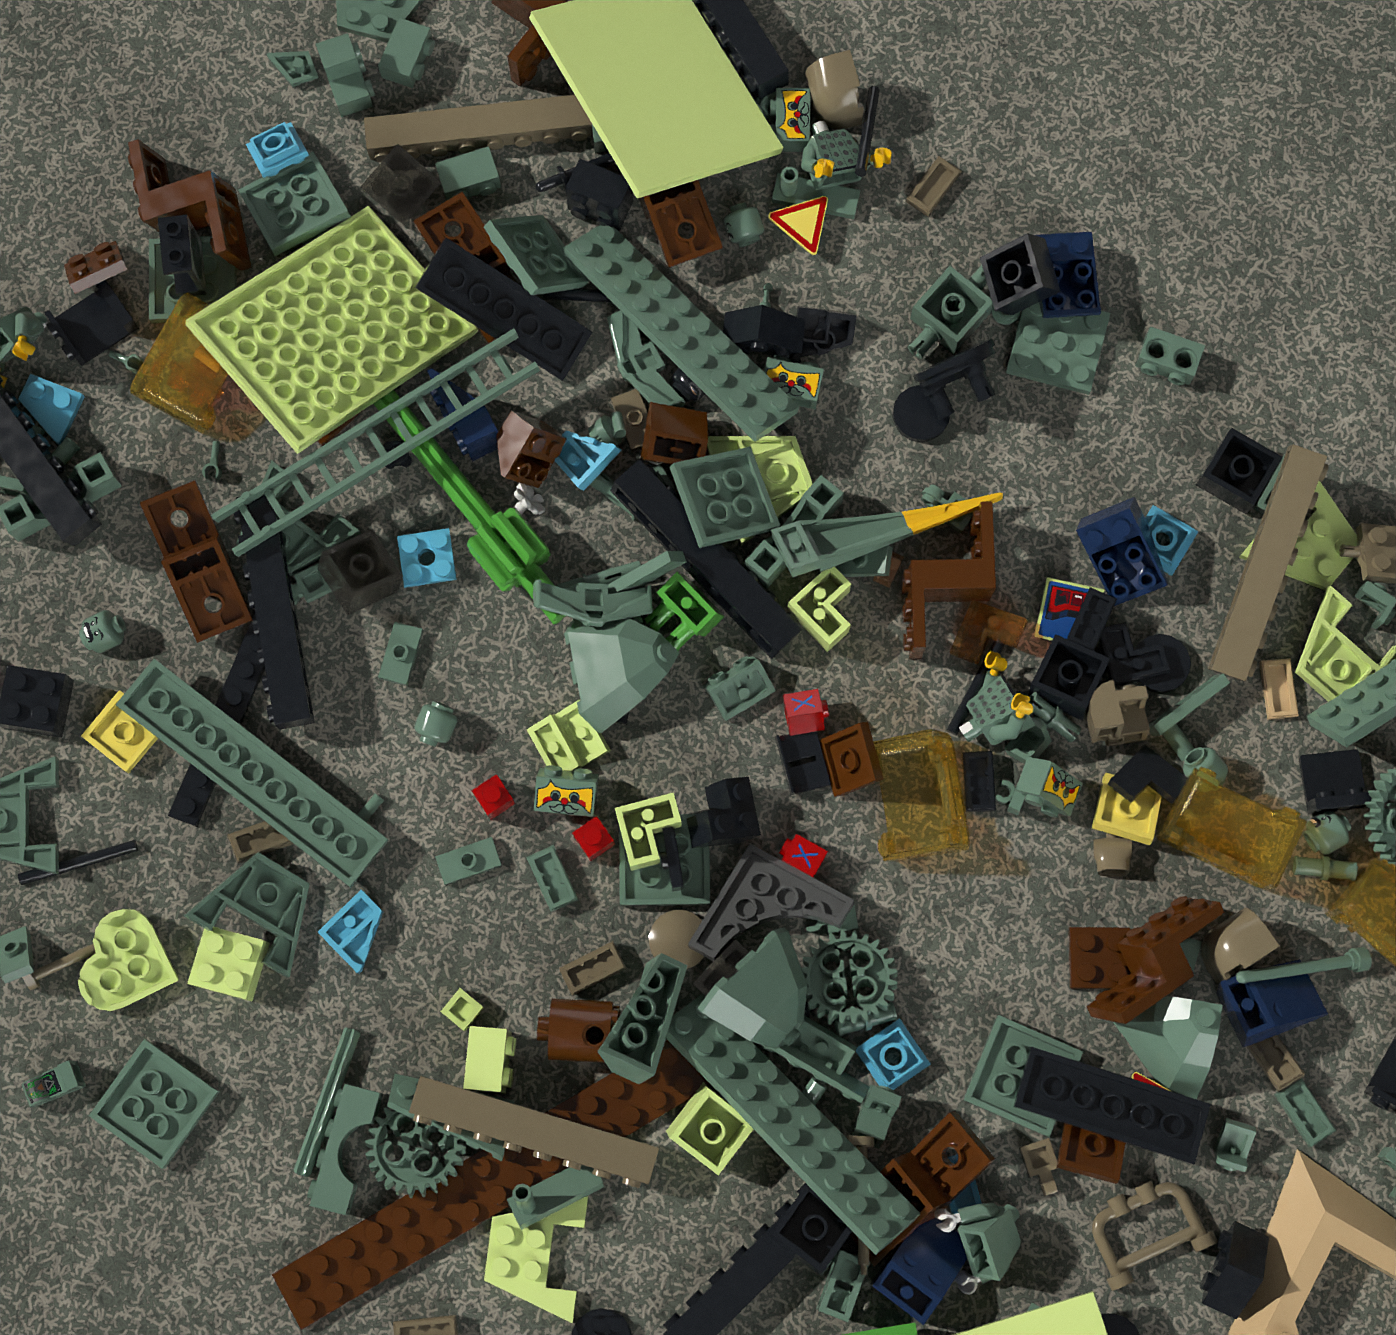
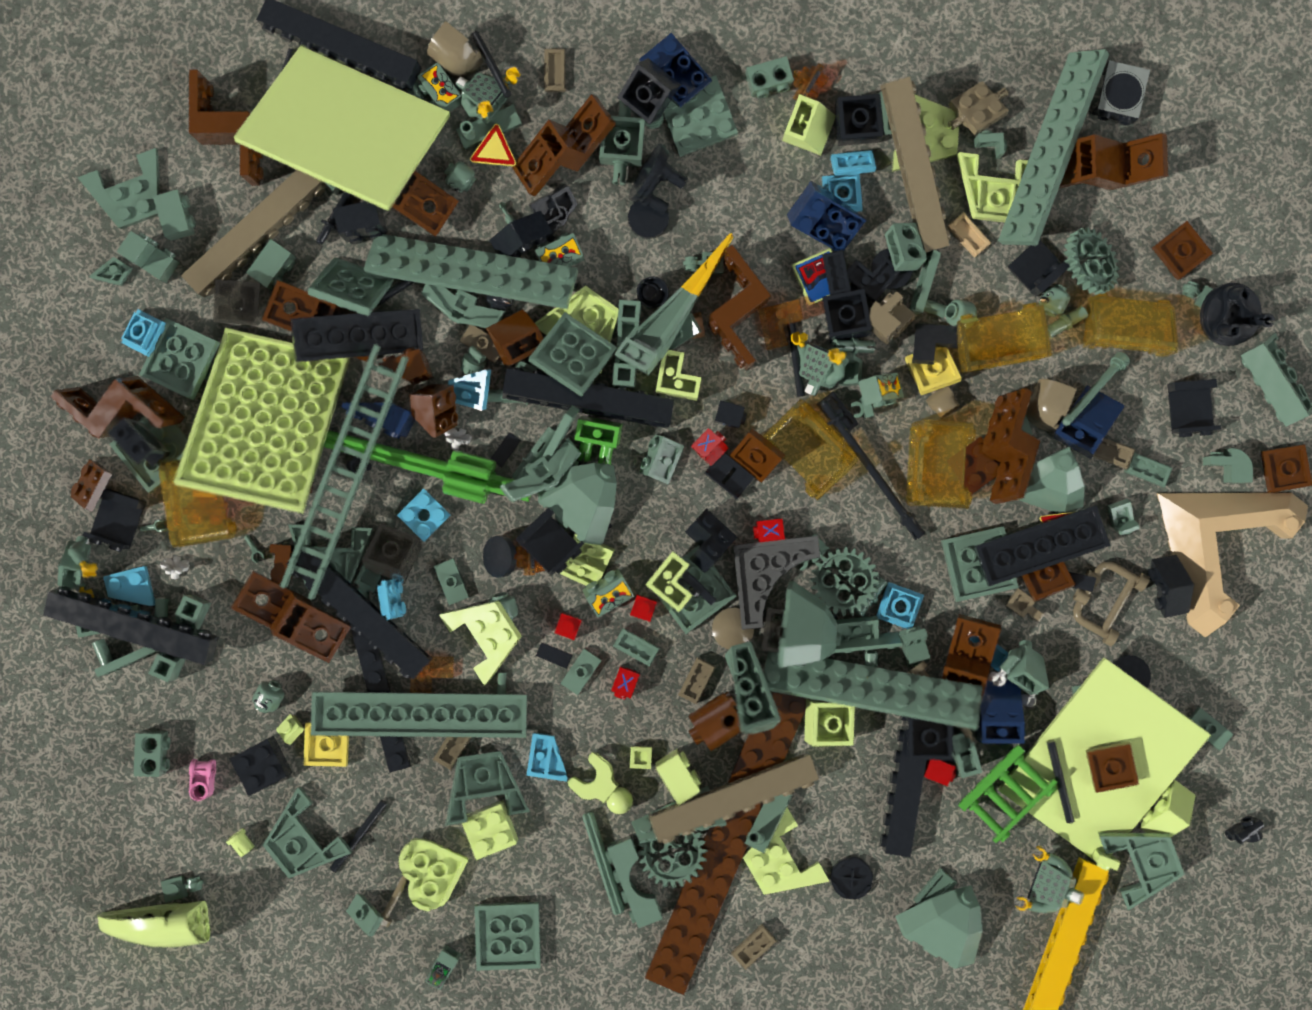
camera: 40 degrees left, 10 degrees up
(97, 685) = (290, 729): none -> yellowish green plate
(114, 418) = (175, 566): none -> white plant
(239, 485) = (282, 556): none -> reddish brown leg
(311, 737) = (438, 668): none -> clear orange tile
(319, 621) = (390, 599): none -> medium azure piece
(394, 1011) = (603, 787): none -> yellowish green piece
(404, 739) = (492, 631): none -> yellowish green wing
(452, 821) = (554, 655): none -> black window
(475, 662) = (499, 556): none -> black tile
(502, 699) = (527, 562): none -> clear orange hips
(508, 909) = (625, 683): none -> red brick
(540, 391) = (417, 367): none -> reddish brown slope
(541, 685) = (549, 543): none -> black panel
(572, 552) = (505, 449): none -> black window
(798, 1286) = (940, 771): none -> red brick
(854, 693) = (730, 415): none -> black brick
(865, 489) = (648, 288): none -> black hair
(882, 268) = (563, 145): none -> reddish brown bracket
(974, 958) = (907, 518): none -> black bar
(1057, 921) = (938, 464): none -> clear yellow windscreen
(1131, 1186) = (1083, 581): none -> black window
(1177, 438) = (809, 125): none -> yellowish green slope
(1193, 647) = (905, 246): none -> sand green brick
(1199, 514) = (853, 163): none -> medium azure plate
(1223, 390) = (806, 81): none -> clear orange hips

